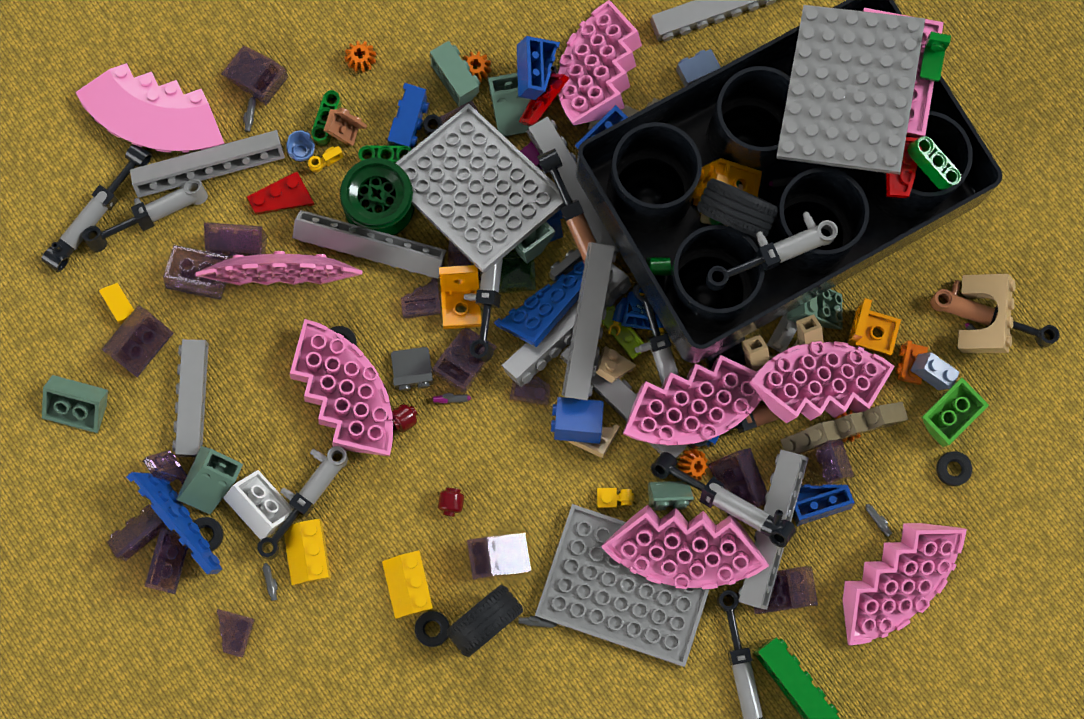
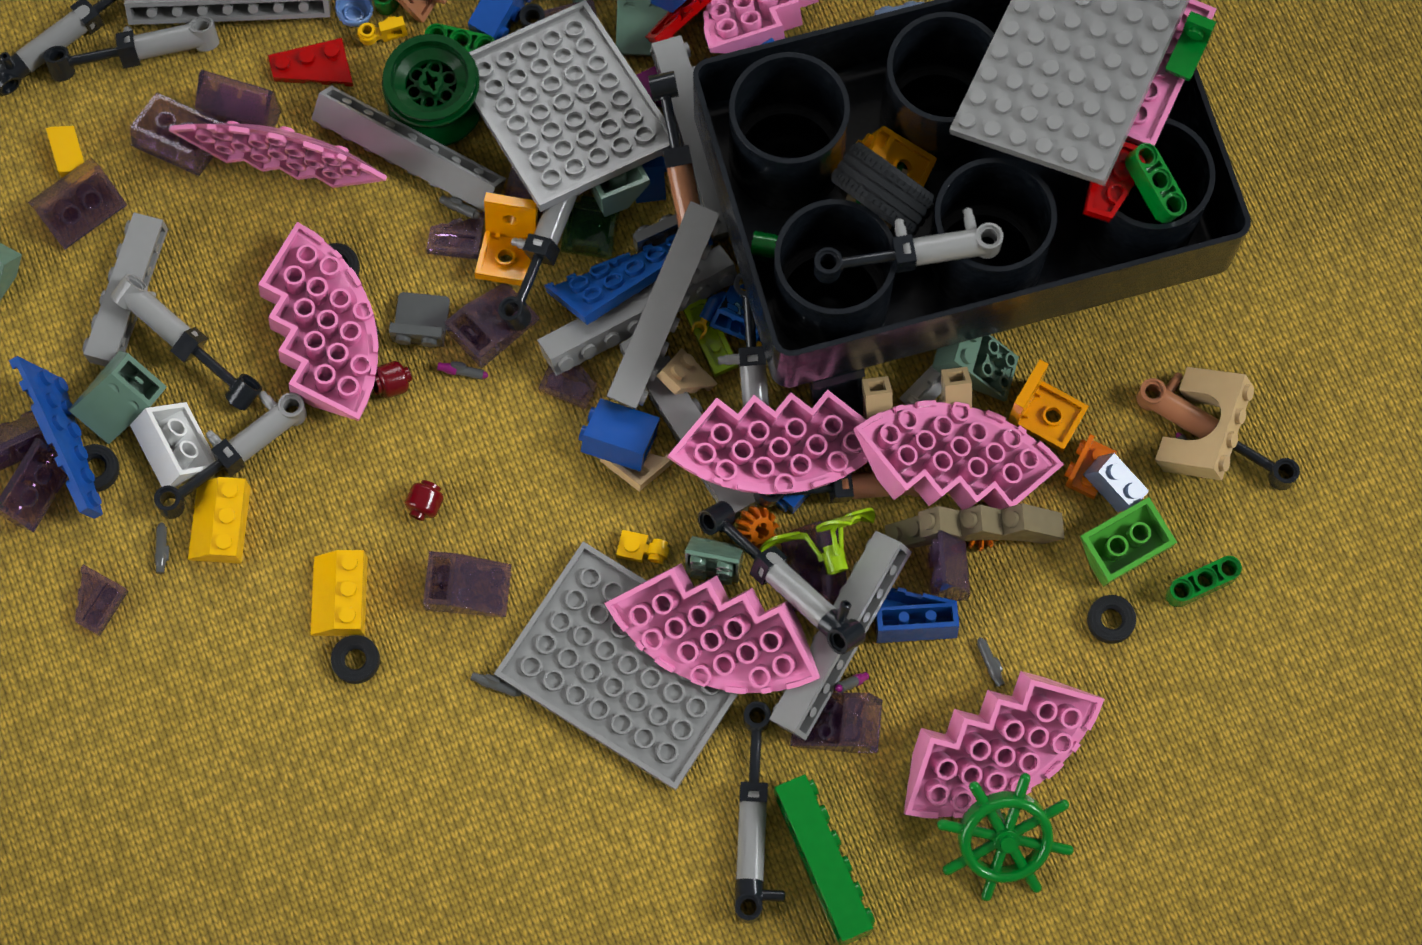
camera: 20 degrees right, 5 degrees down
(165, 466) = (65, 365): clear purple wing -> none
(204, 404) = (185, 341): none -> piece
(415, 277) = (457, 205): none -> dark grey piece
(484, 620) = (422, 658): black tyre -> none
(755, 473) = (833, 554): none -> lime plant
(789, 557) = (851, 682): none -> piece
(924, 645) = (1005, 836): none -> green piece
(1019, 422) = (1212, 572): none -> green beam

